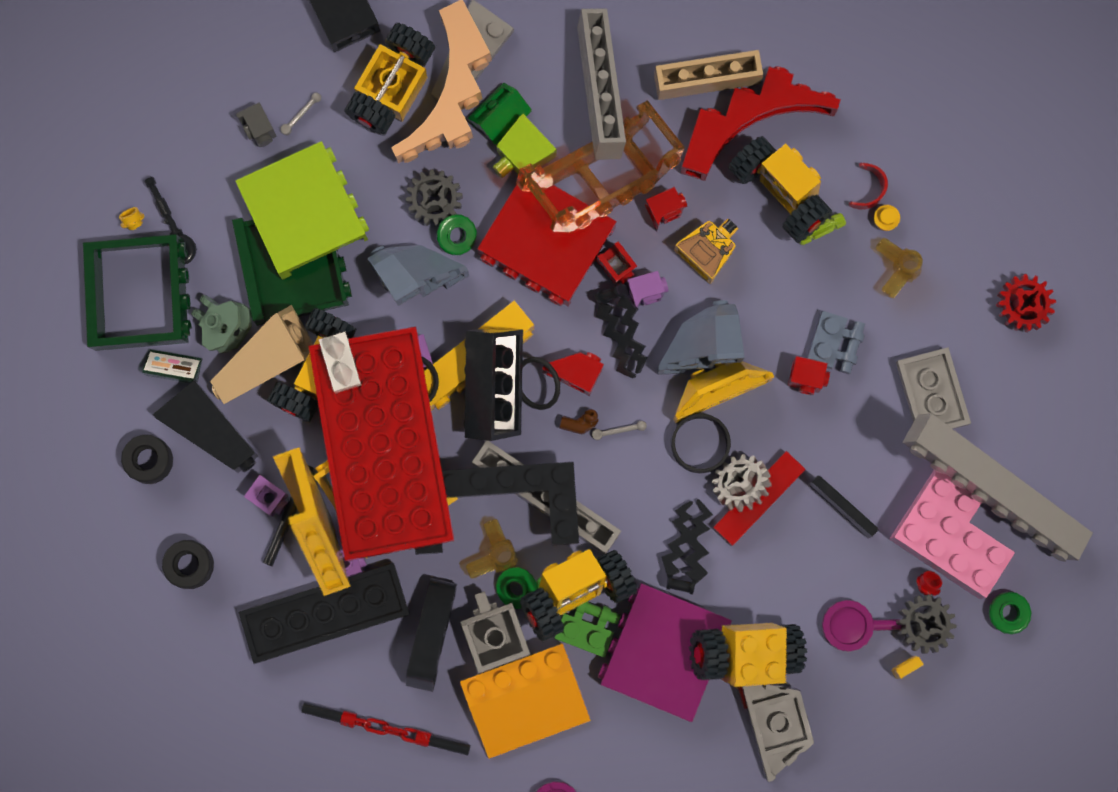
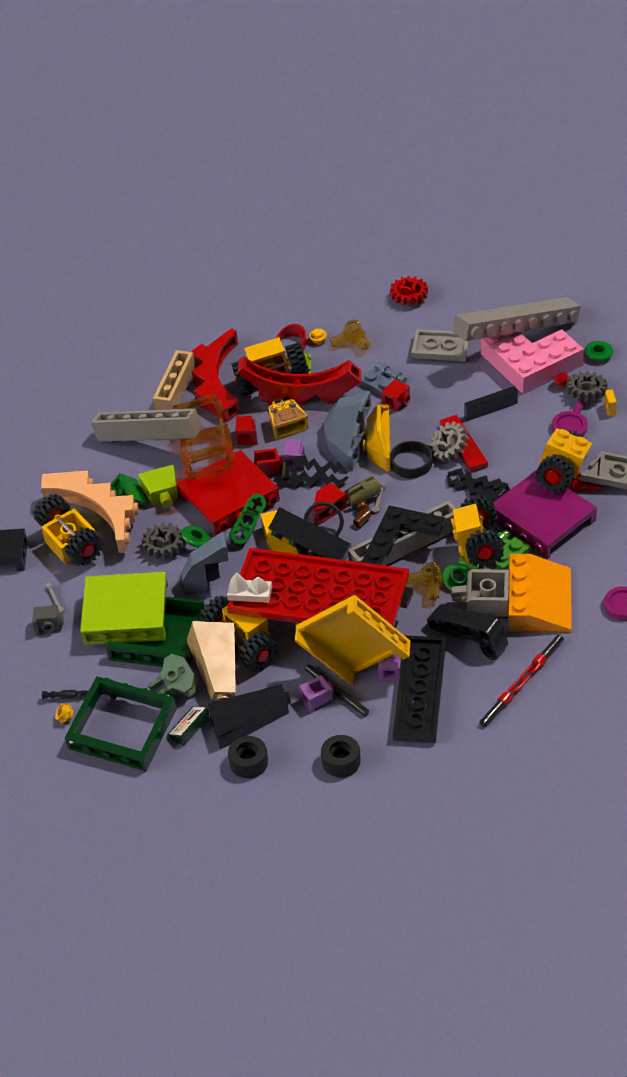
camera: 60 degrees left, 35 degrees down
(493, 292) = (258, 510): none -> green beam
(613, 407) = (362, 491): none -> olive arm
(763, 241) = (301, 387): none -> red arch

